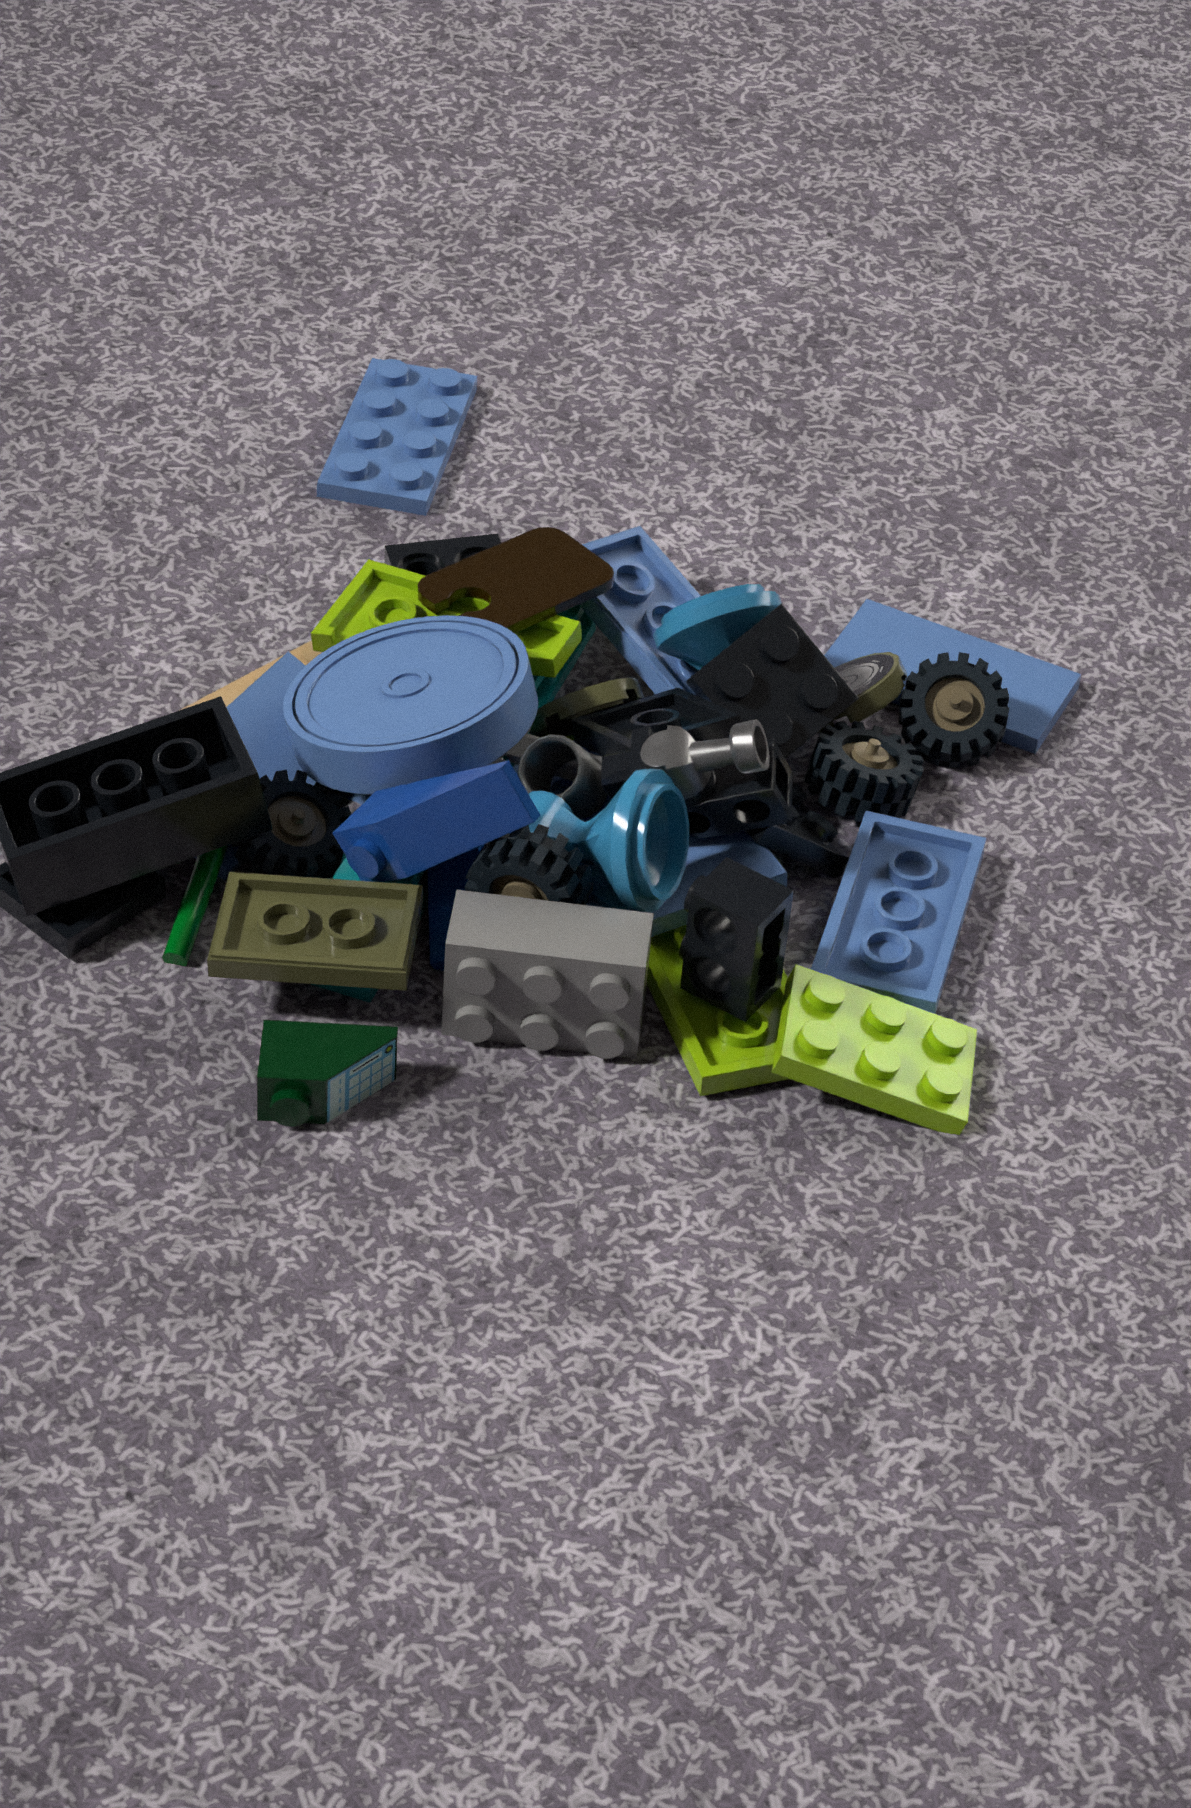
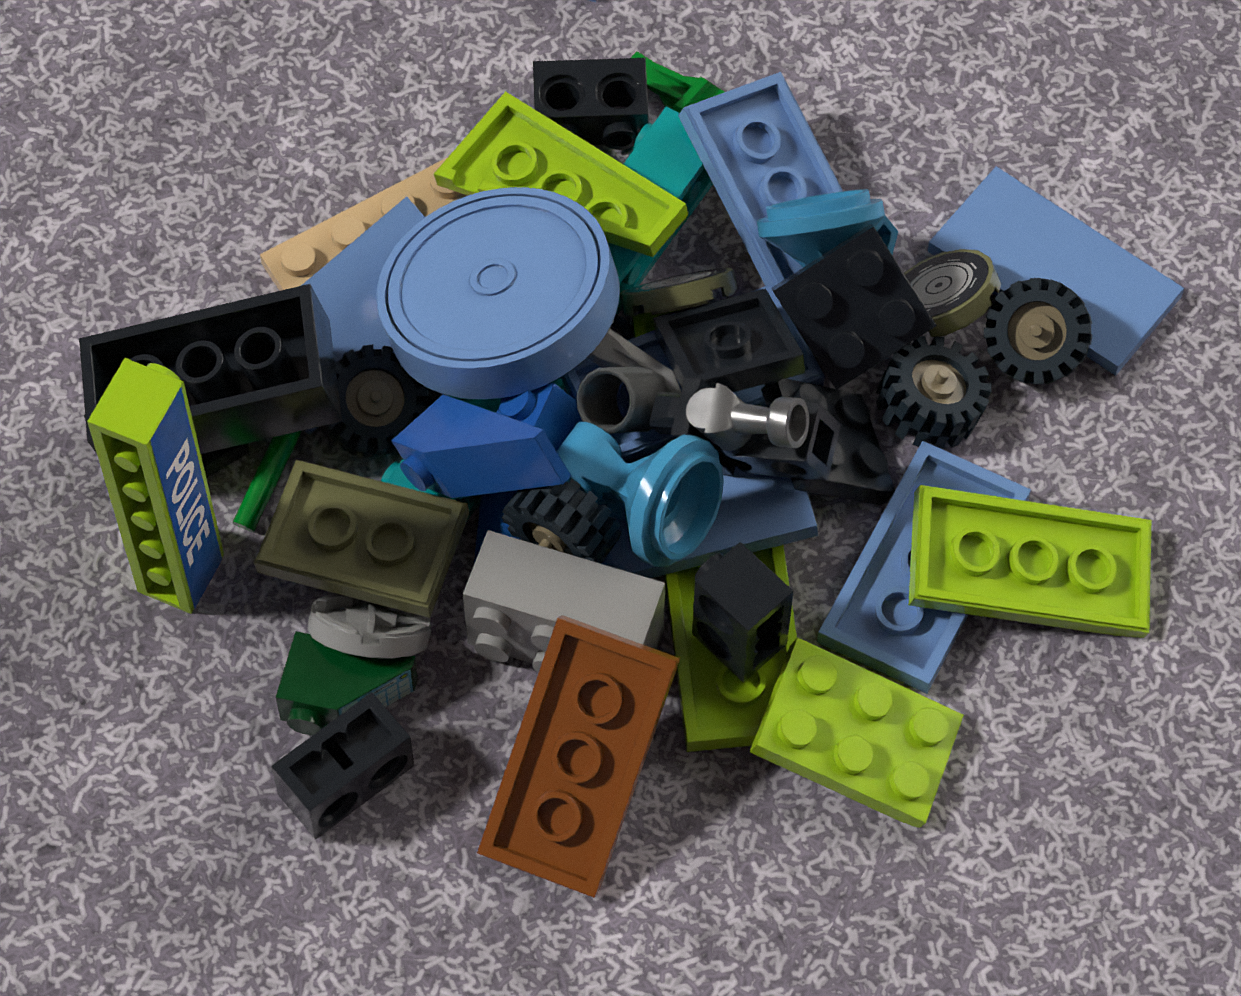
camera: 15 degrees right, 20 degrees up
(109, 857) = (157, 483): none -> lime brick
(341, 1009) = (367, 628): none -> light grey tile
(344, 1132) = (343, 765): none -> black brick
(521, 579) = (645, 143): dark brown piece -> none
(598, 1083) = (578, 755): none -> dark orange plate
(1005, 893) = (1030, 562): none -> lime tile

